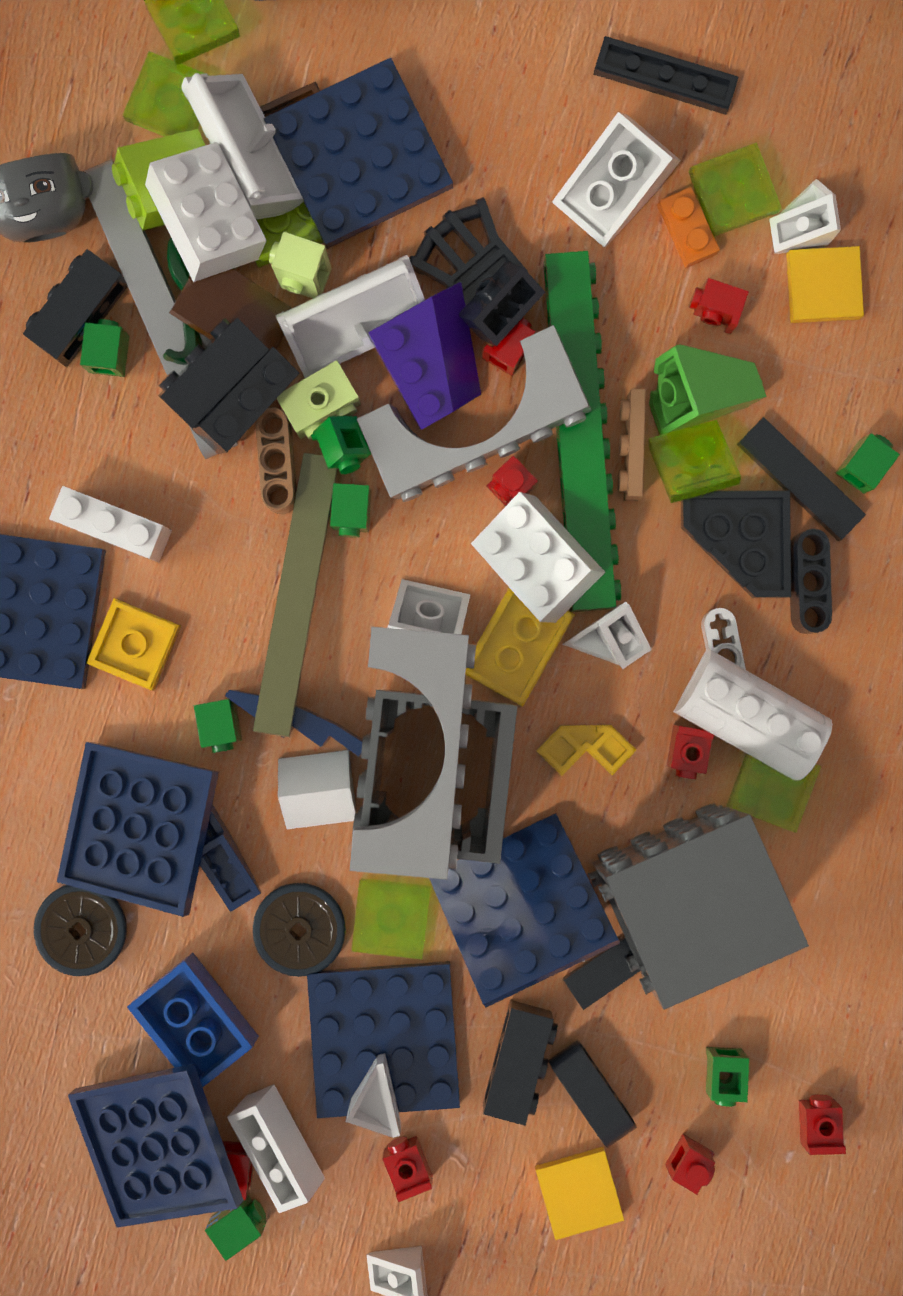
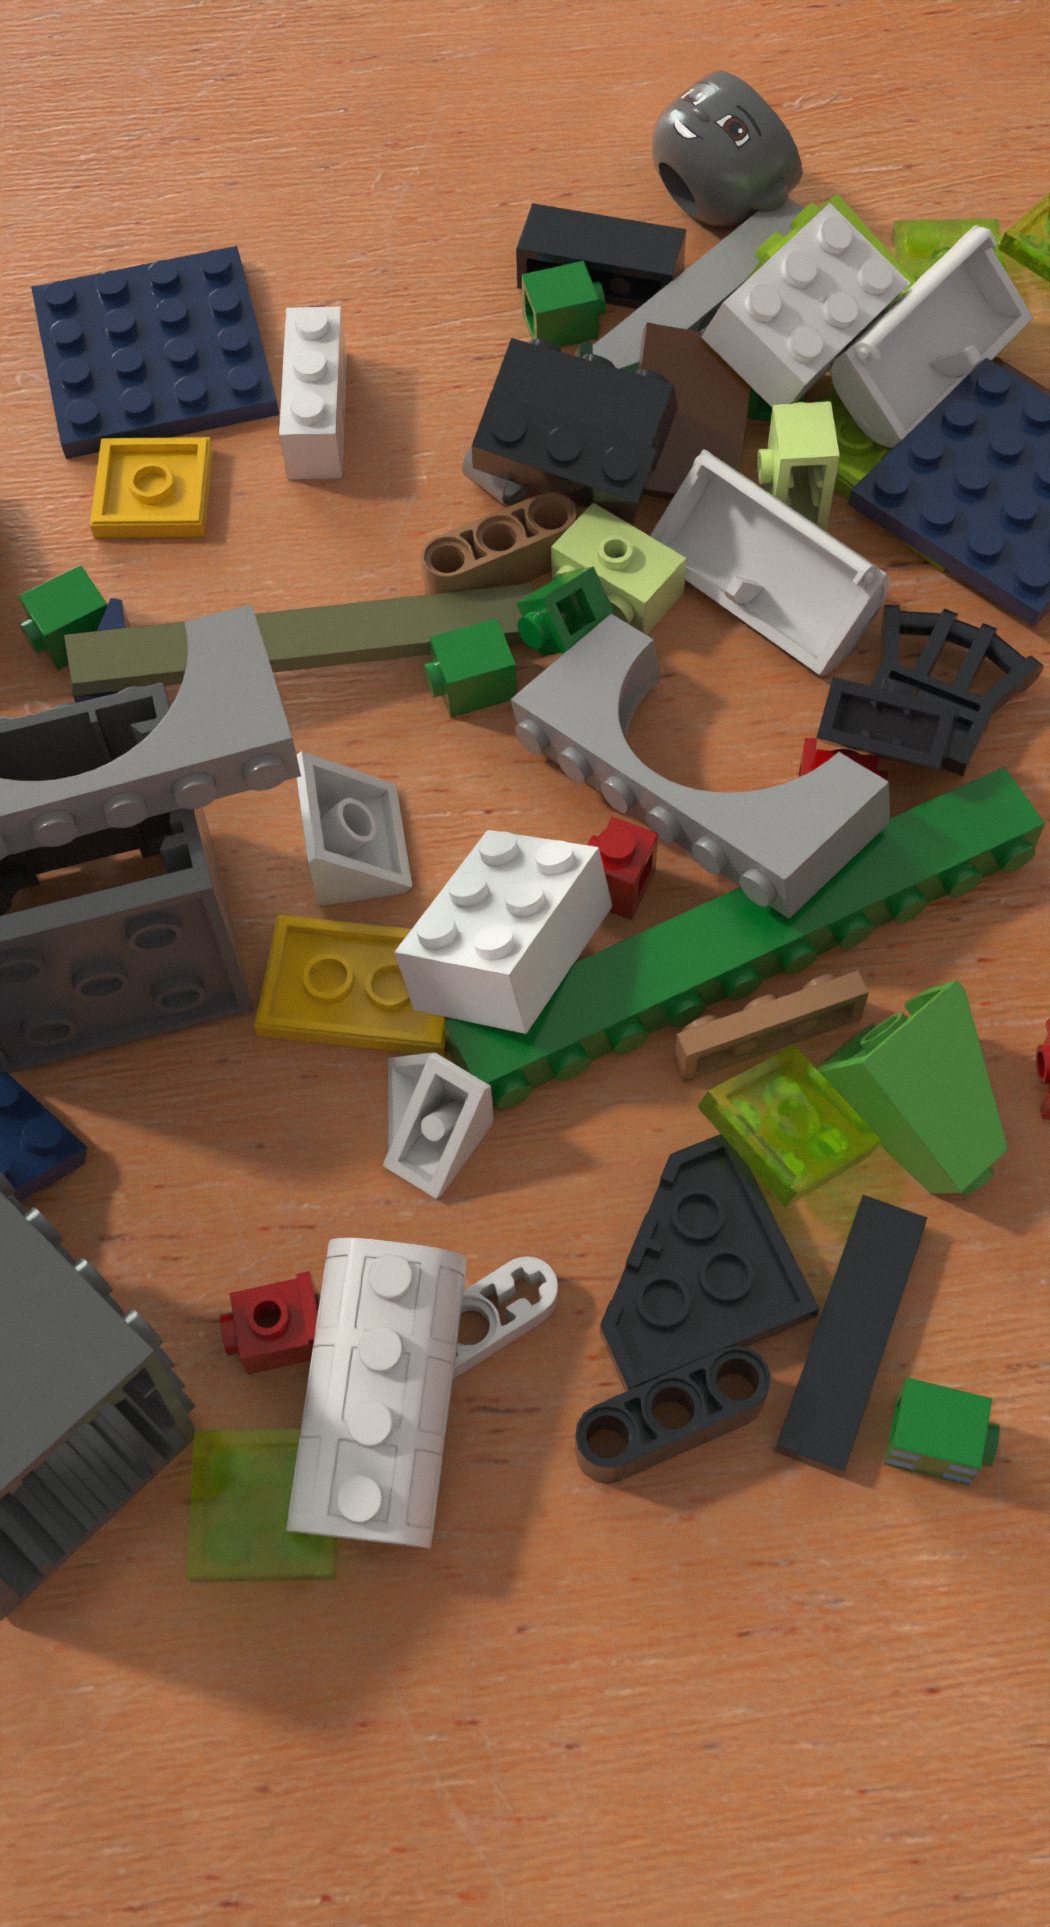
camera: 65 degrees right, 25 degrees down
(430, 356) = (754, 674): dark purple wedge -> none
(572, 741) = (240, 1176): yellow tile -> none

